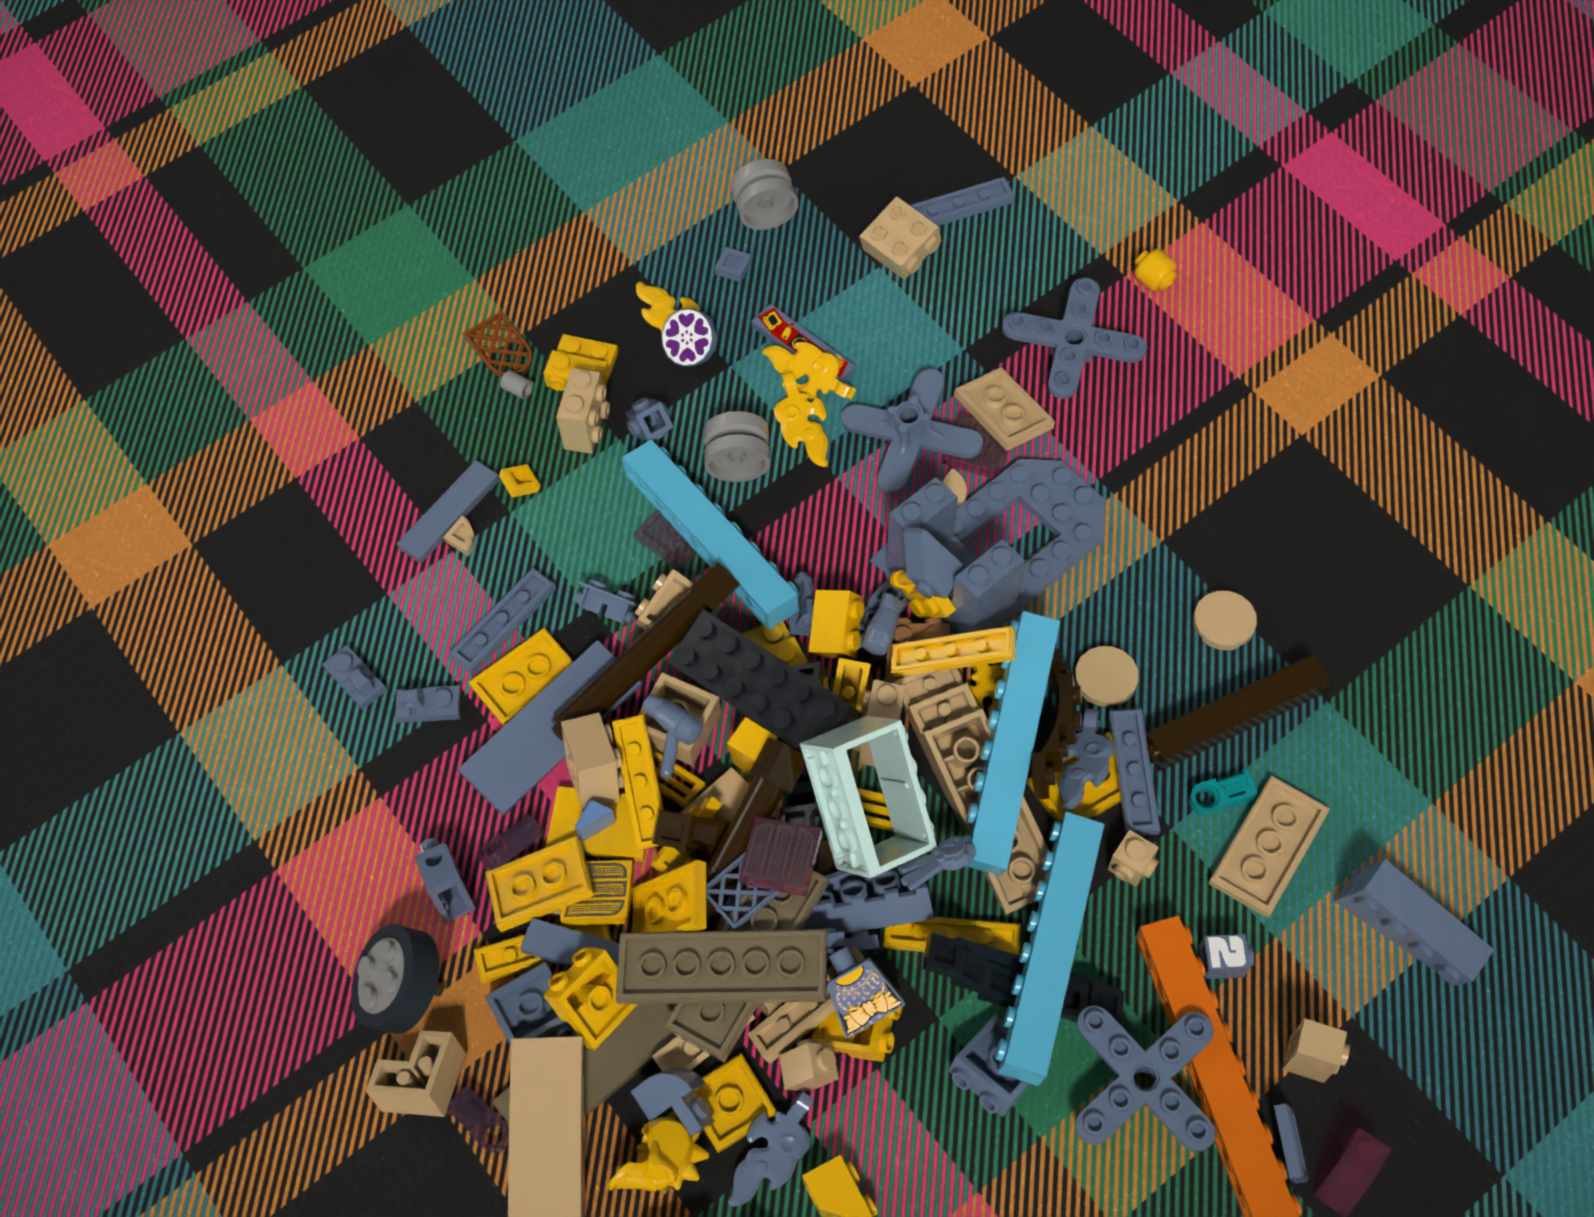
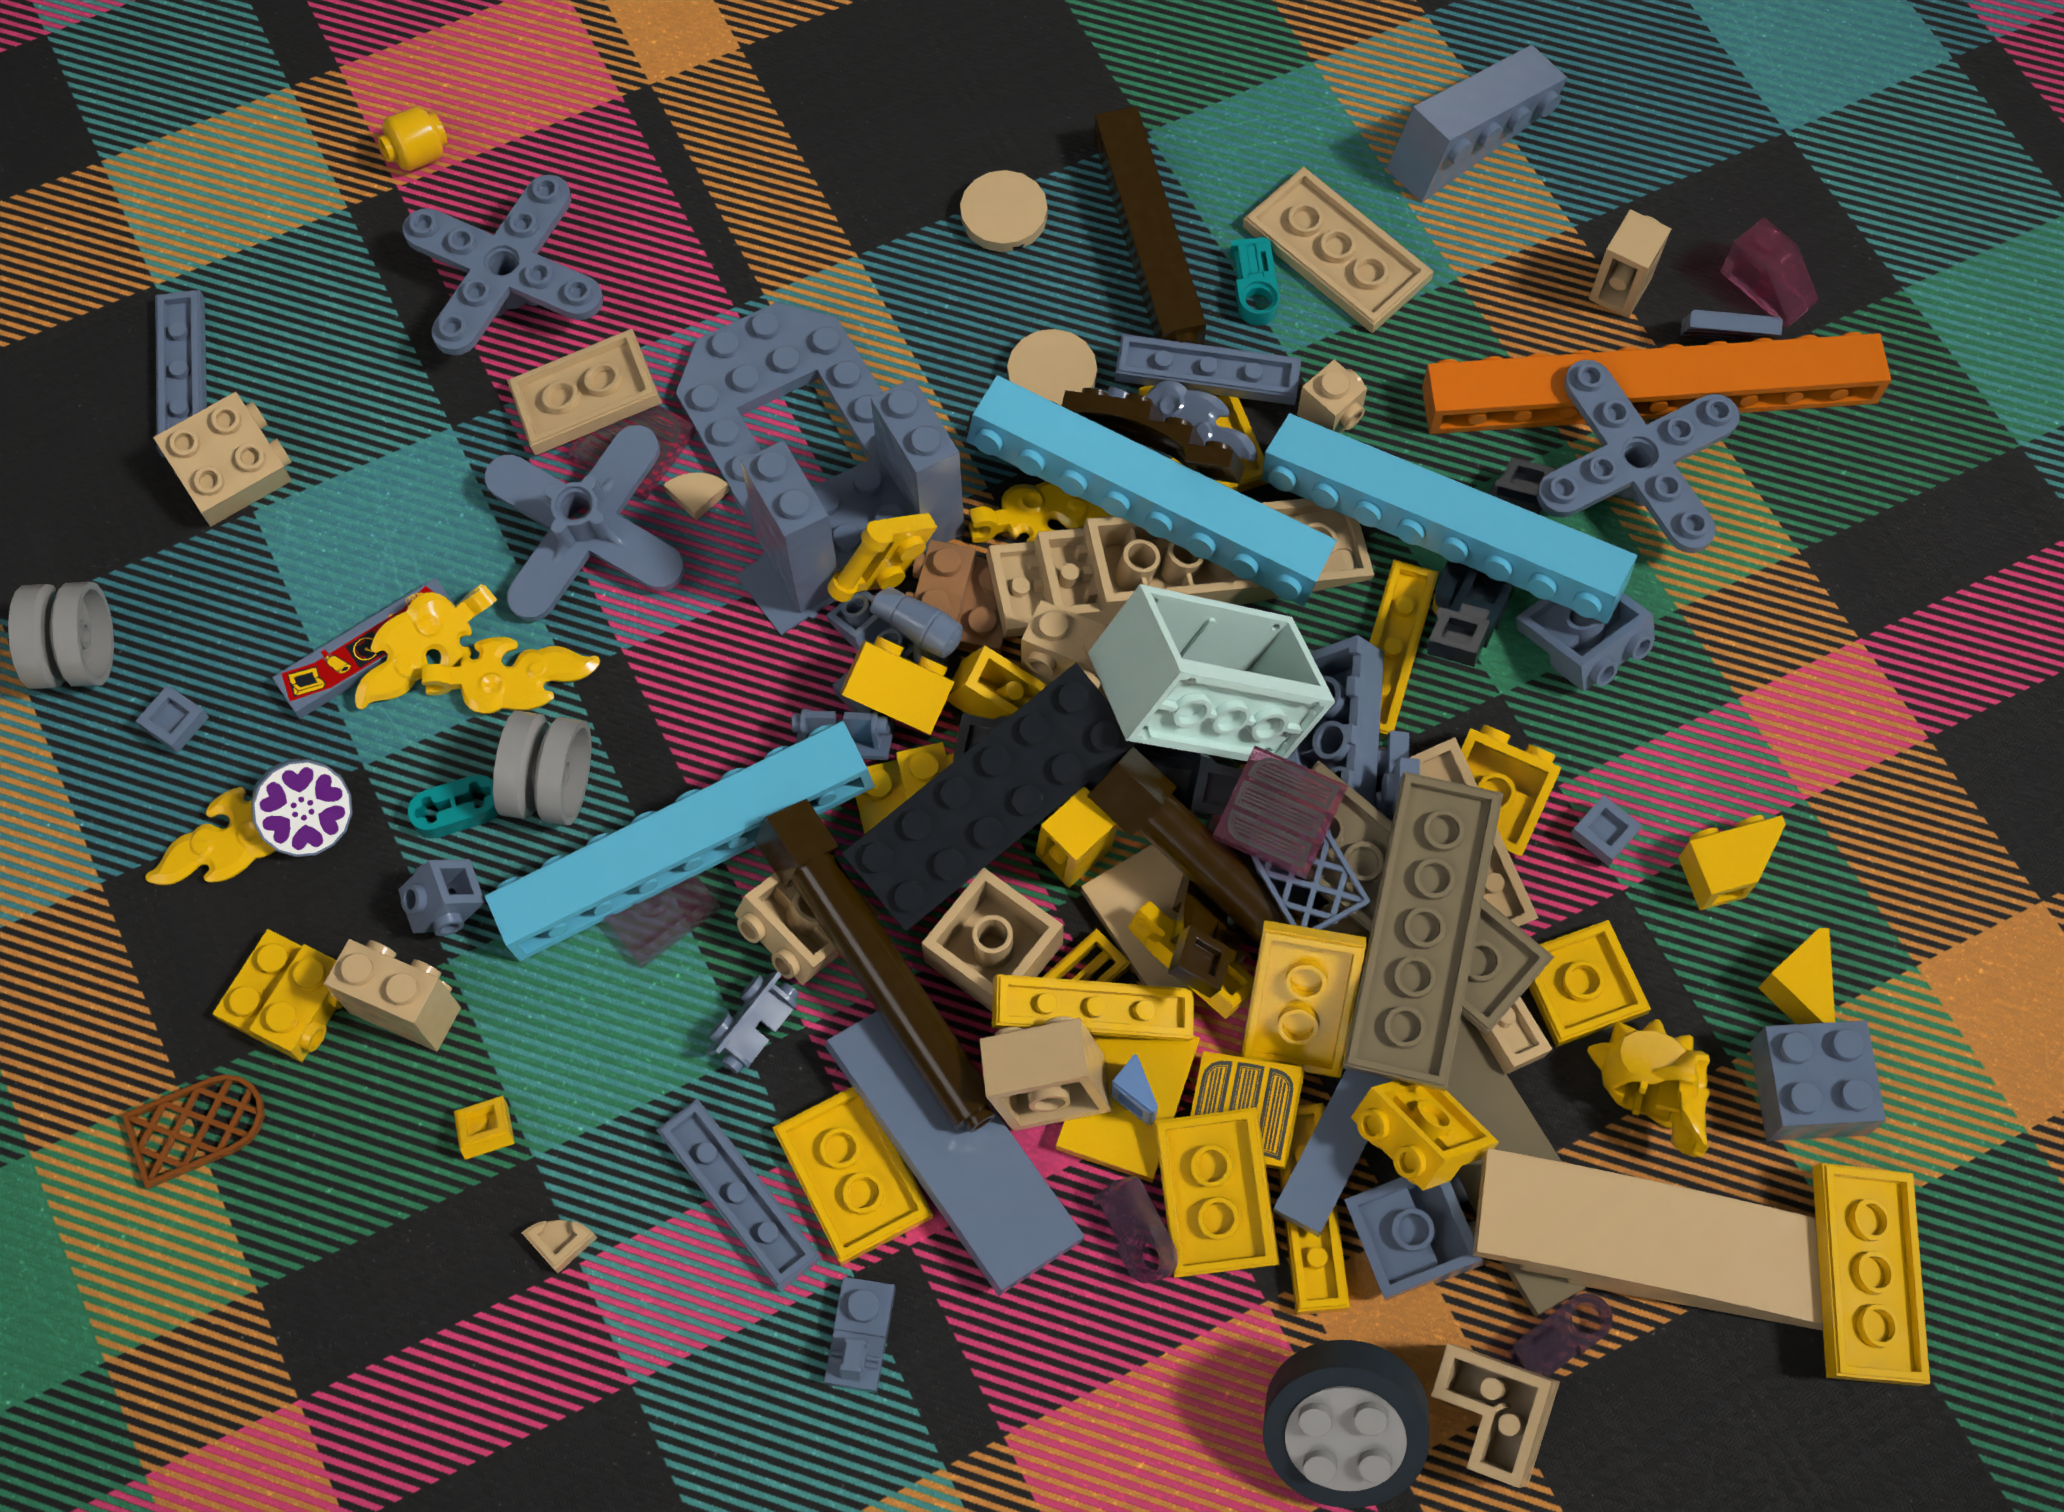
camera: 80 degrees left, 5 degrees up
(354, 677) = (778, 1455): sand blue hinge -> none
(441, 874) = (1202, 1331): sand blue torso -> none
(455, 502) = (505, 1257): sand blue tile -> none
(516, 384) = (288, 1106): light grey hinge -> none
(676, 1091) = (1571, 1043): sand blue brick -> none
(678, 723) = (1027, 926): sand blue piece -> none
(701, 413) = (454, 807): none -> teal beam
(777, 1161) = (1649, 916): sand blue piece -> none
(808, 1066) = (1558, 859): tan brick -> none
(844, 1102) = (1606, 830): none -> sand blue plate
(860, 992) = (1493, 753): torso -> none
(929, 563) = (878, 506): sand blue slope -> none
(950, 855) = (1312, 597): sand blue piece -> none
(954, 651) = (998, 529): yellow tile -> none
(1226, 956) = (1483, 329): brick -> none

